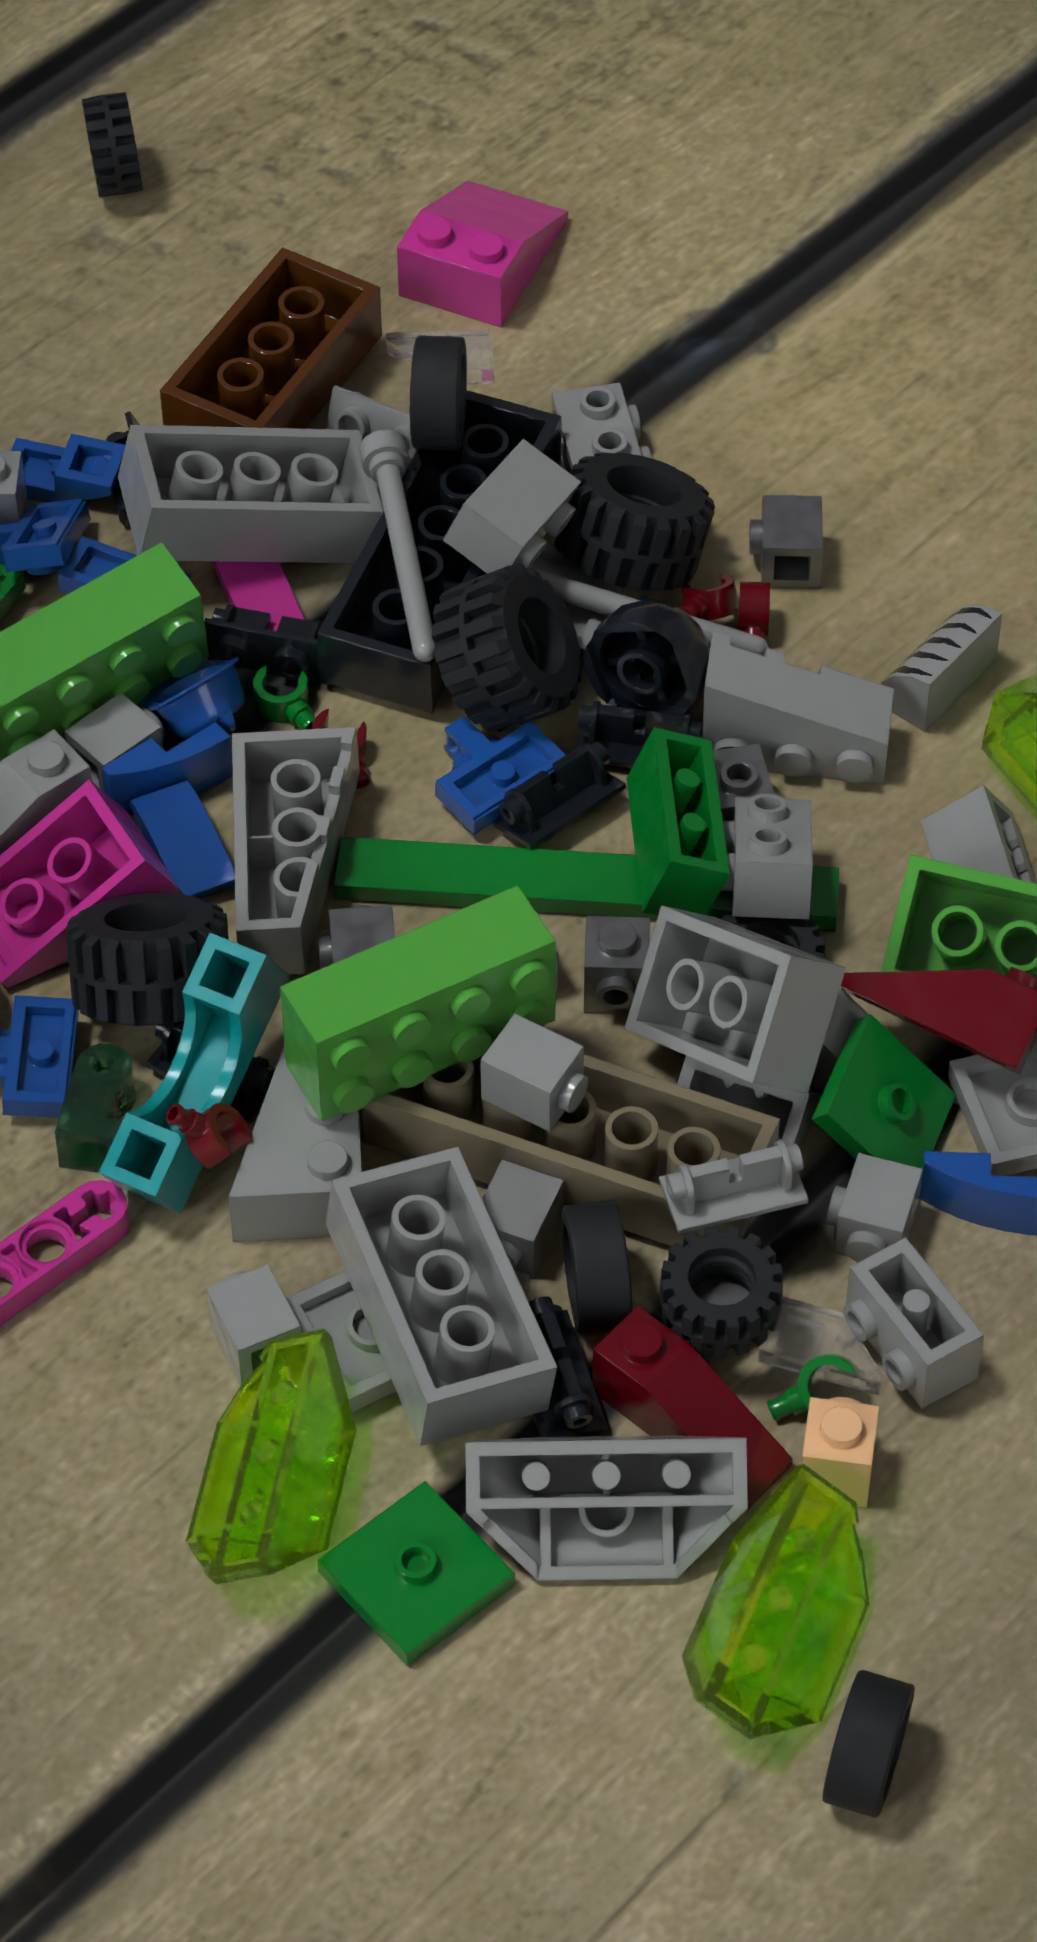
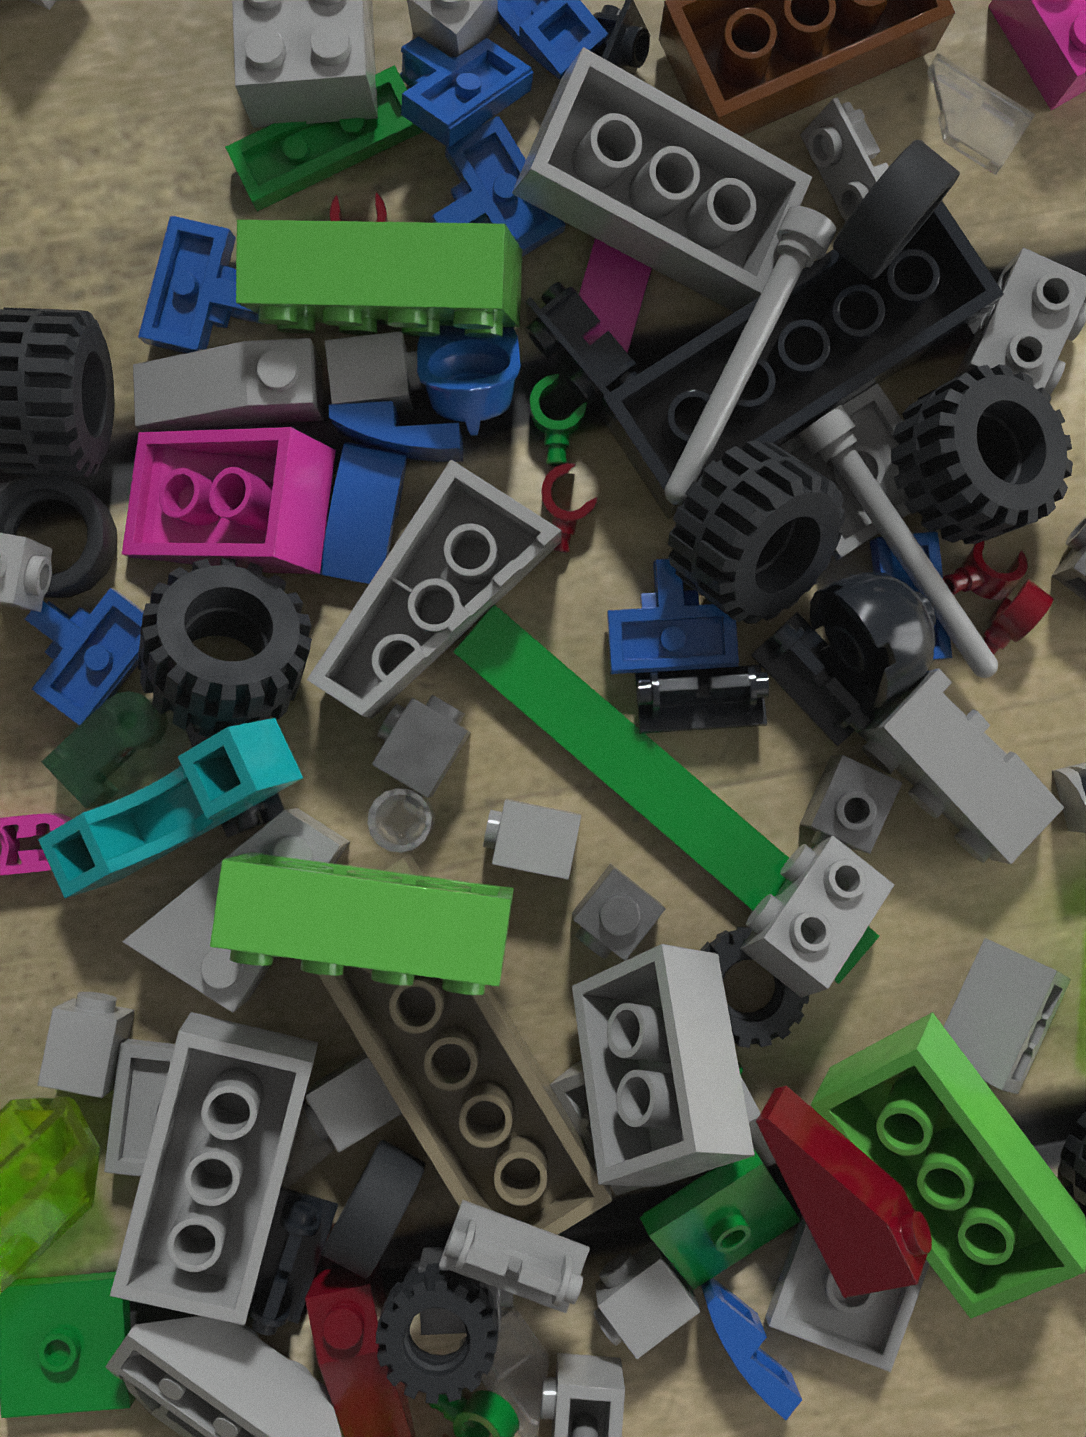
camera: 35 degrees right, 35 degrees up
(212, 1133) = (128, 875): dark red piece -> none
(514, 511) = (863, 401): light grey brick -> none
(533, 1073) = (429, 1036): light grey brick -> none
(677, 823) = (762, 829): green brick -> none

